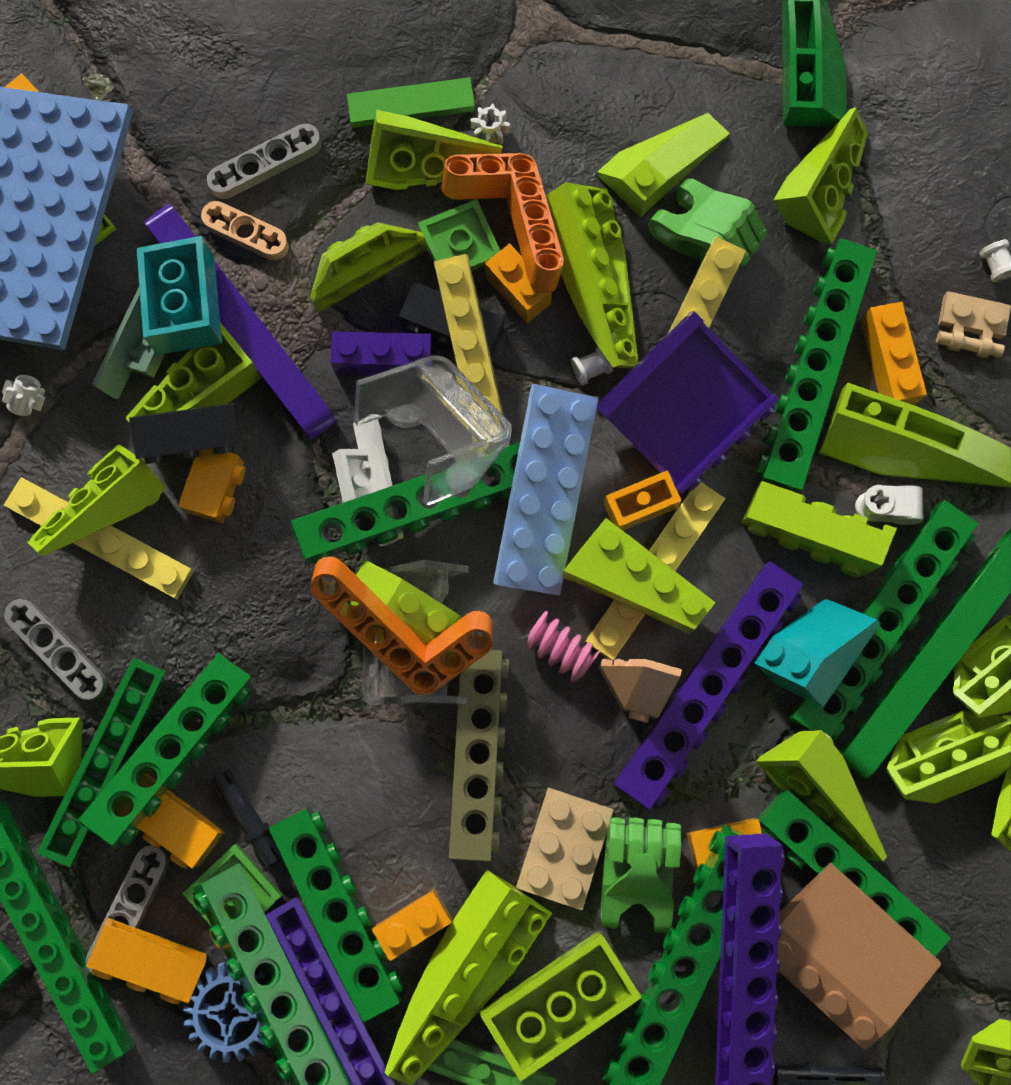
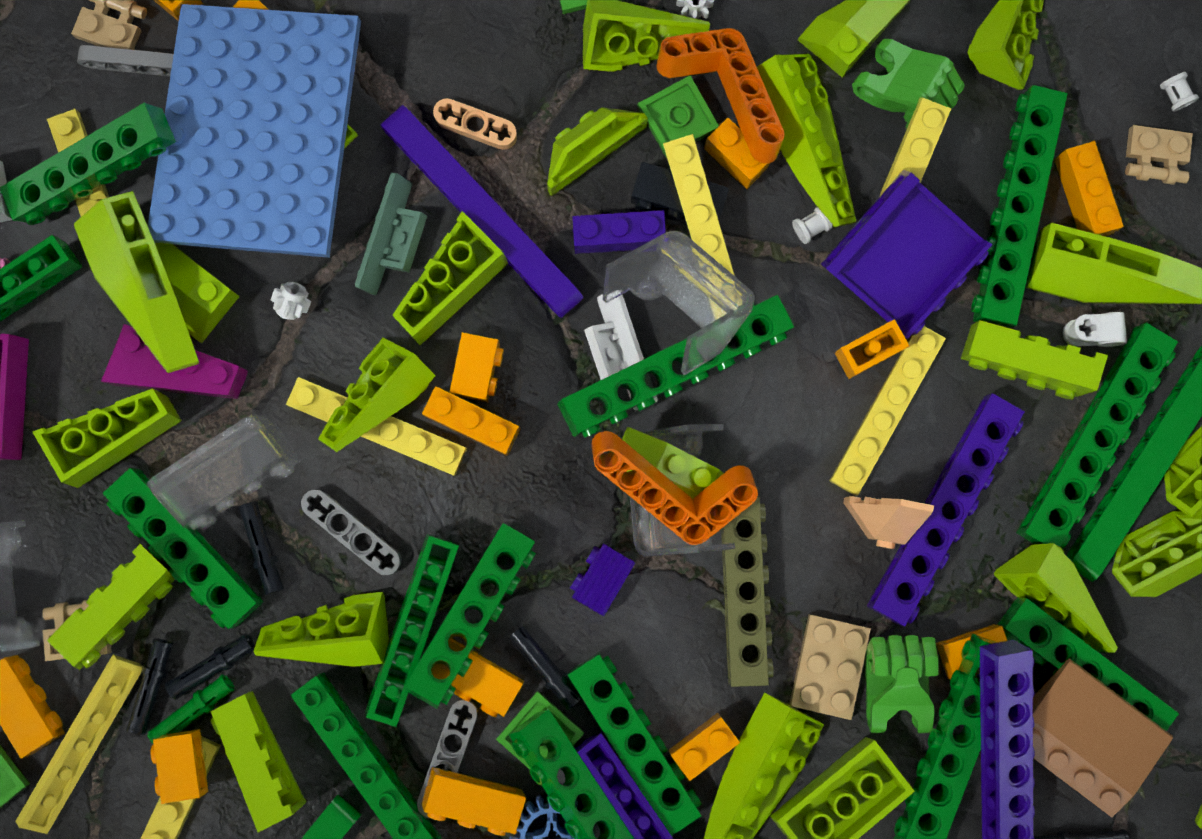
camera: 10 degrees left, 5 degrees up
(178, 295) = (429, 196): teal brick -> none
(184, 432) = (451, 324): black brick -> none
(199, 540) = (471, 421): none -> light orange brick
(261, 156) = (488, 59): light grey beam -> none
(321, 726) = (602, 580): none -> dark purple brick
(545, 490) = (784, 346): light blue plate -> none
(561, 647) = (811, 488): bright pink piece -> none
(629, 573) = (874, 420): lime wedge -> none
(816, 650) = (1042, 470): teal slope -> none

